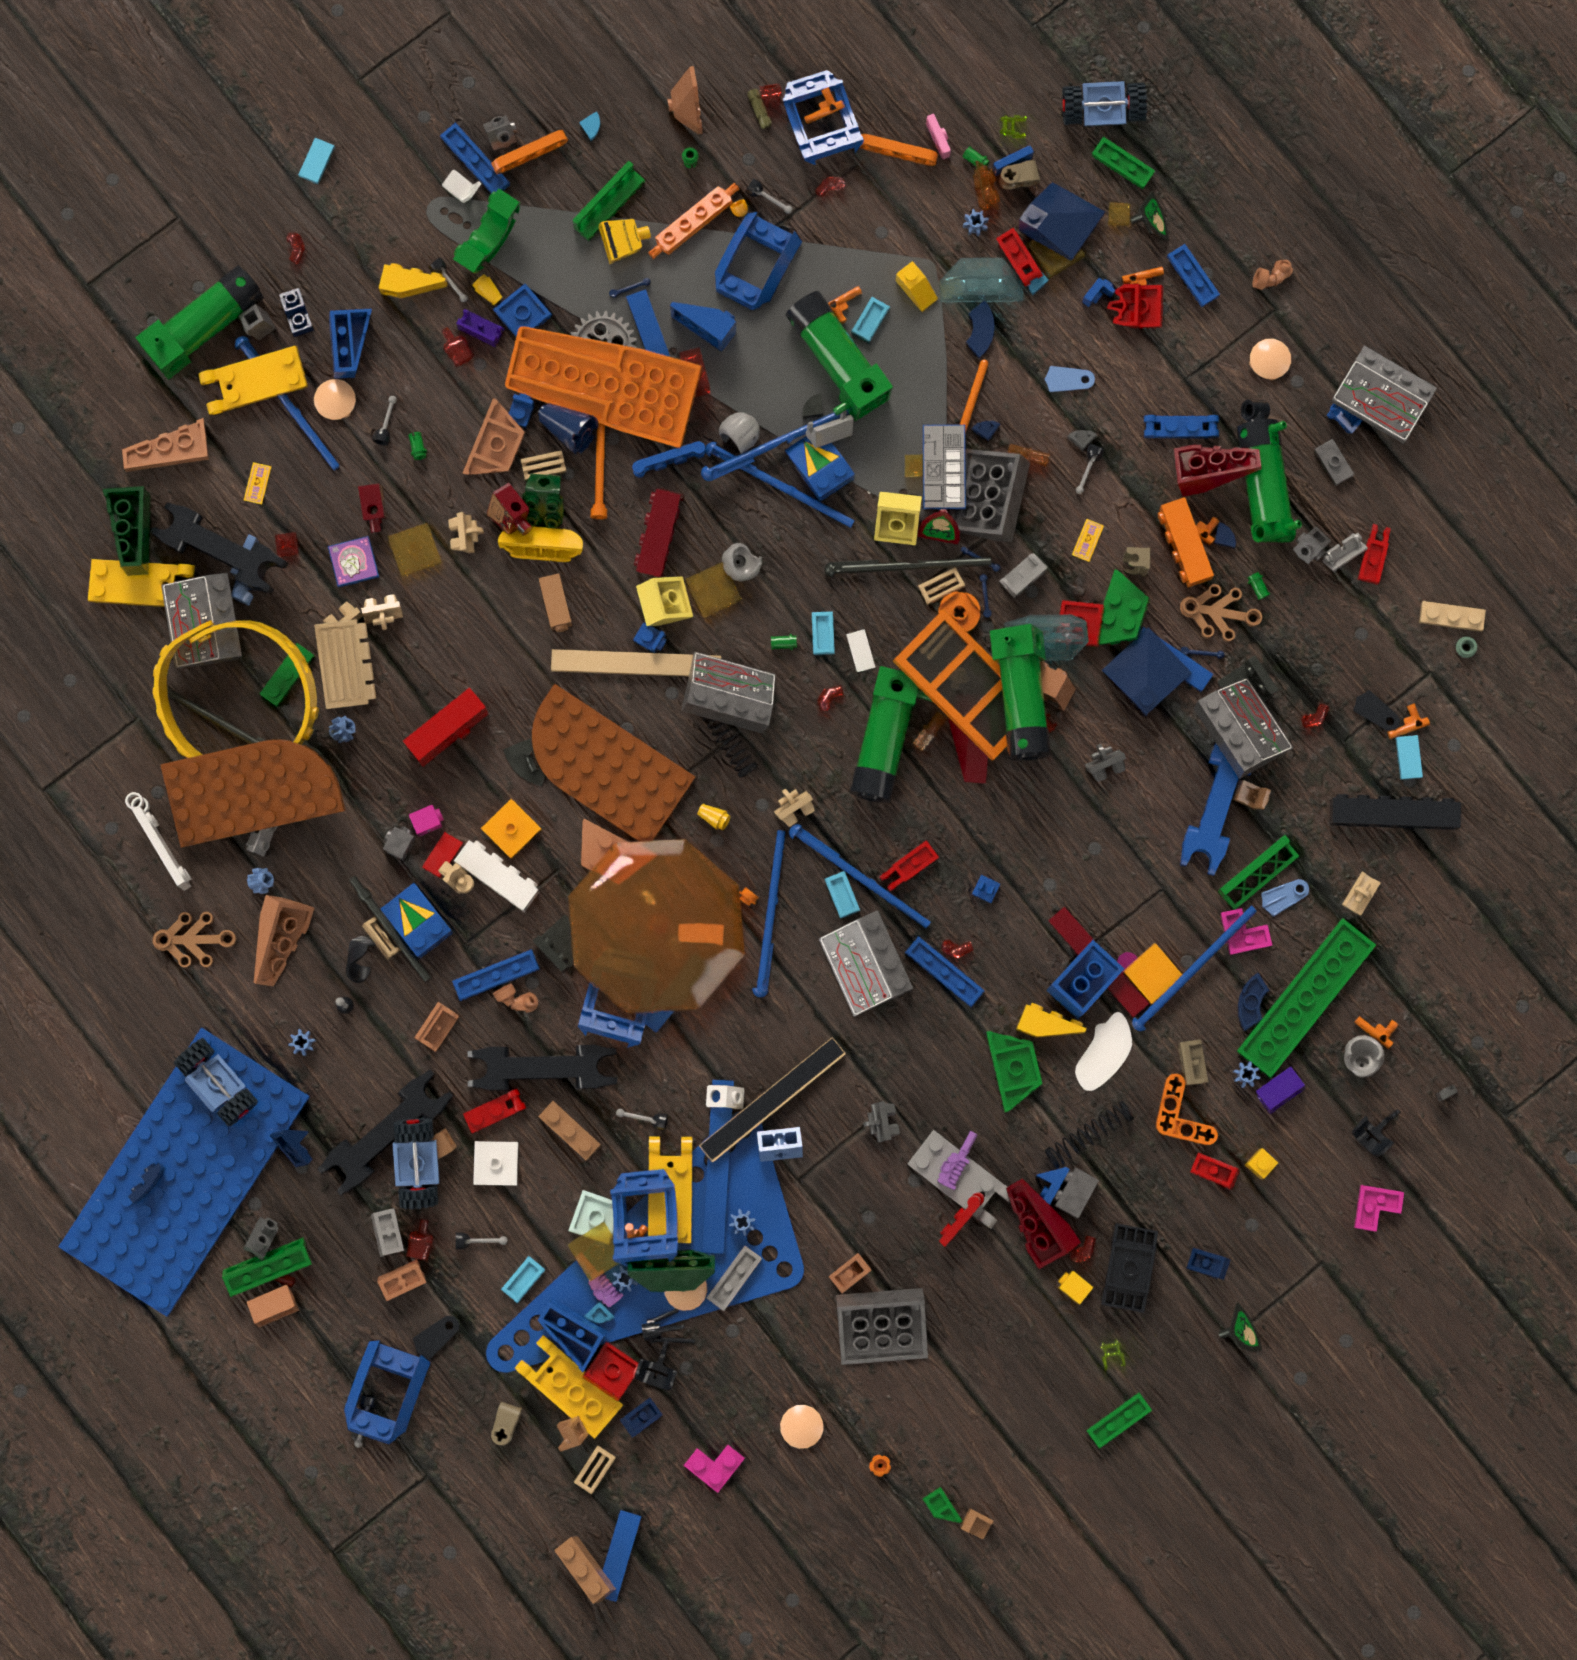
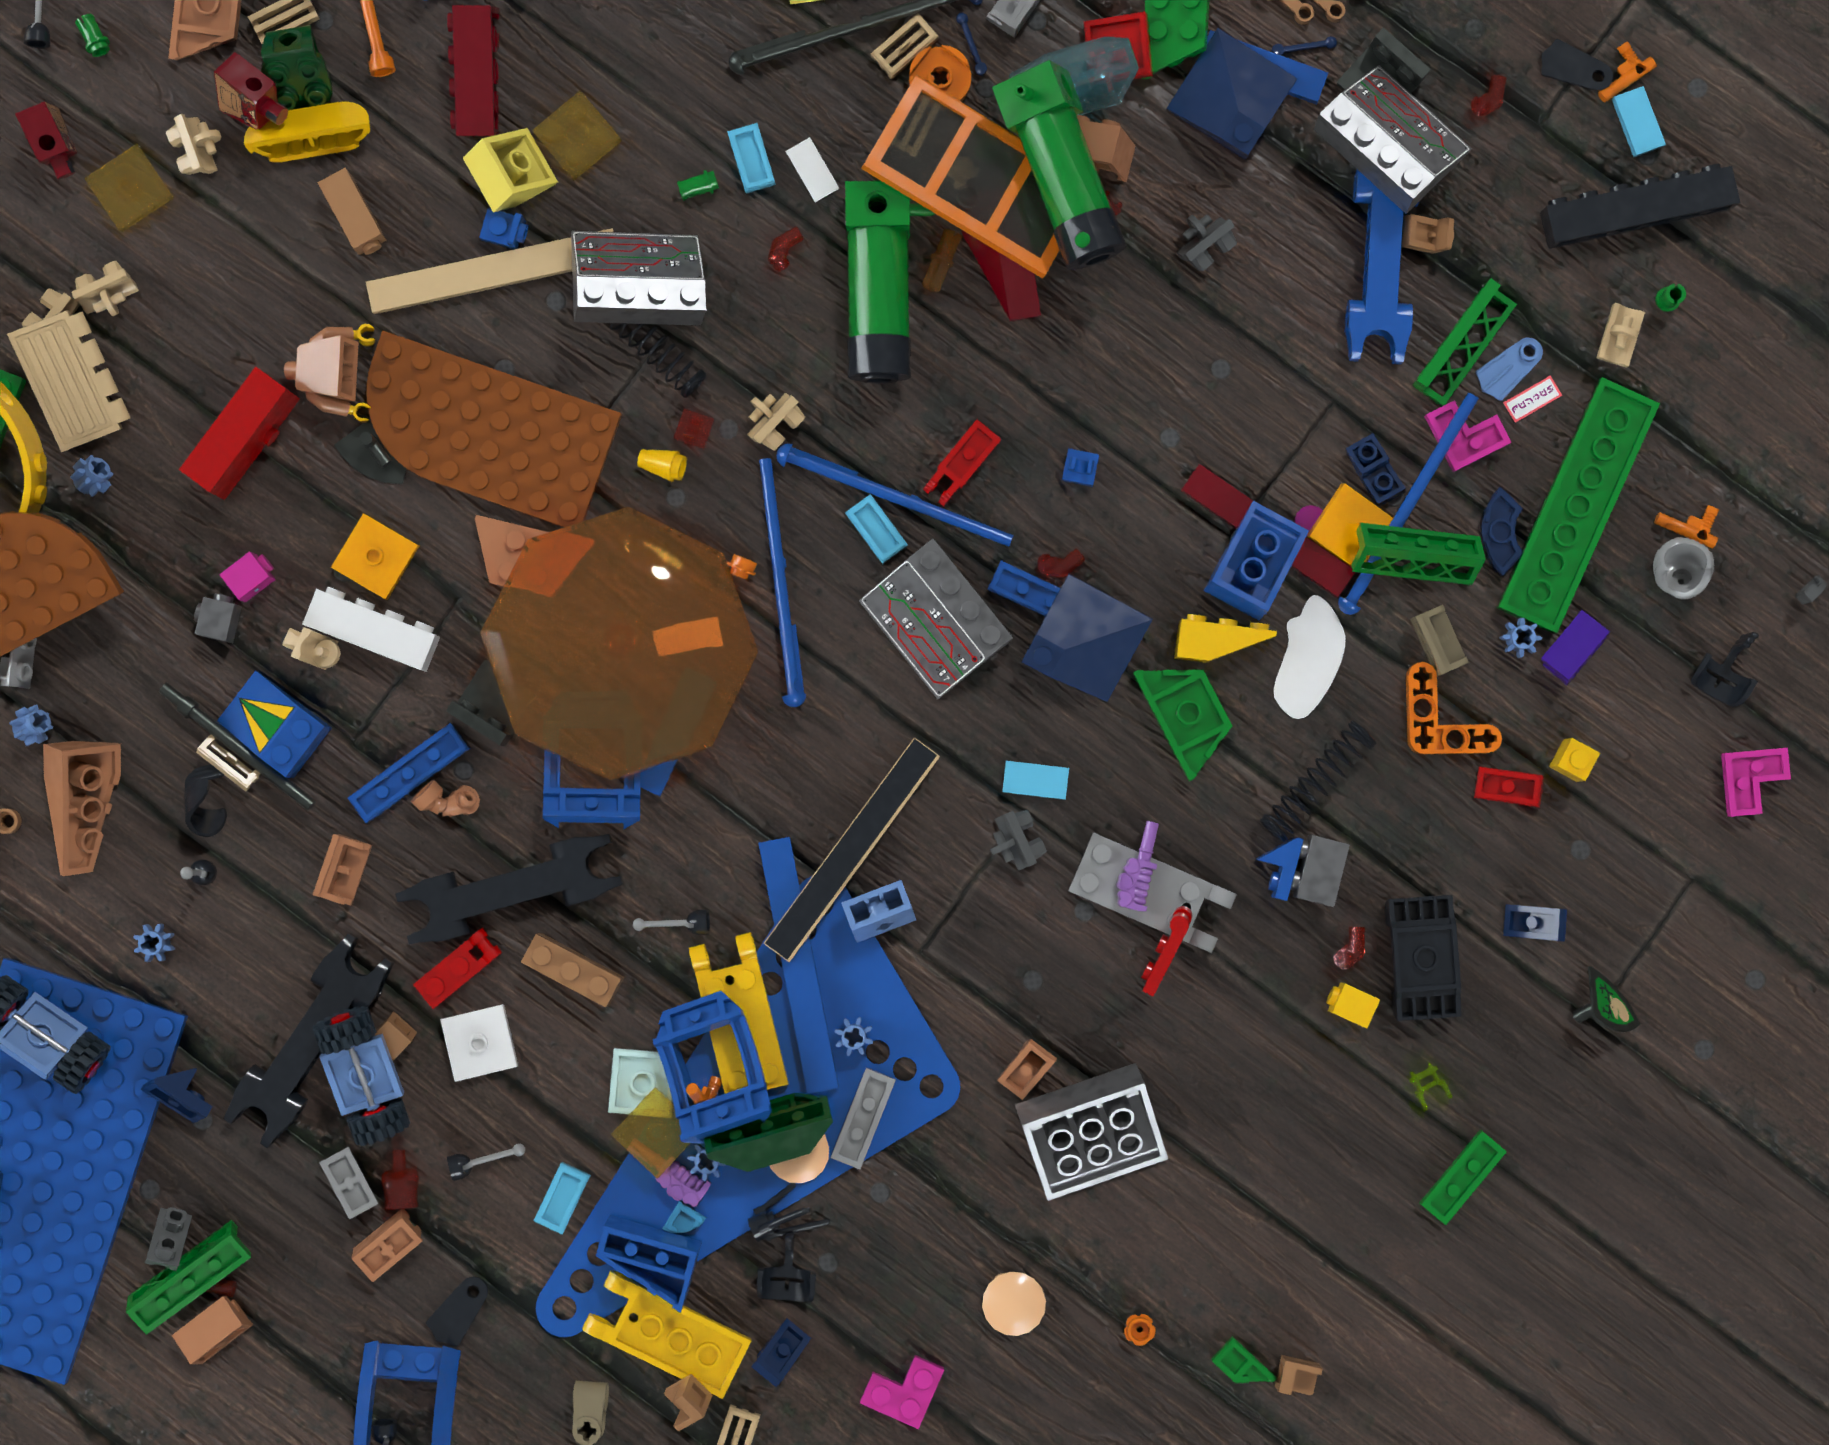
camera: 15 degrees left, 5 degrees up
(353, 561) = (45, 228): tile -> none
(443, 851) = (287, 613): red slope -> none
(514, 699) = (329, 369): none -> nougat torso
(611, 1371) = (722, 1297): red plate -> none
(729, 1096) = (789, 860): white bracket -> none
(740, 799) = (694, 429): none -> clear red tile
(748, 564) = (617, 84): light grey piece -> none
(904, 1085) = (1035, 780): none -> medium azure tile
(961, 1001) = (1086, 639): none -> dark blue slope
(1044, 1229) = (1291, 937): dark red wedge -> none
(1178, 940) = (1375, 470): none -> dark blue slope
(1195, 999) = (1422, 549): none -> green fence
(1294, 920) = (1532, 399): none -> white sticker
(1396, 880) = (1670, 297): none -> green pin

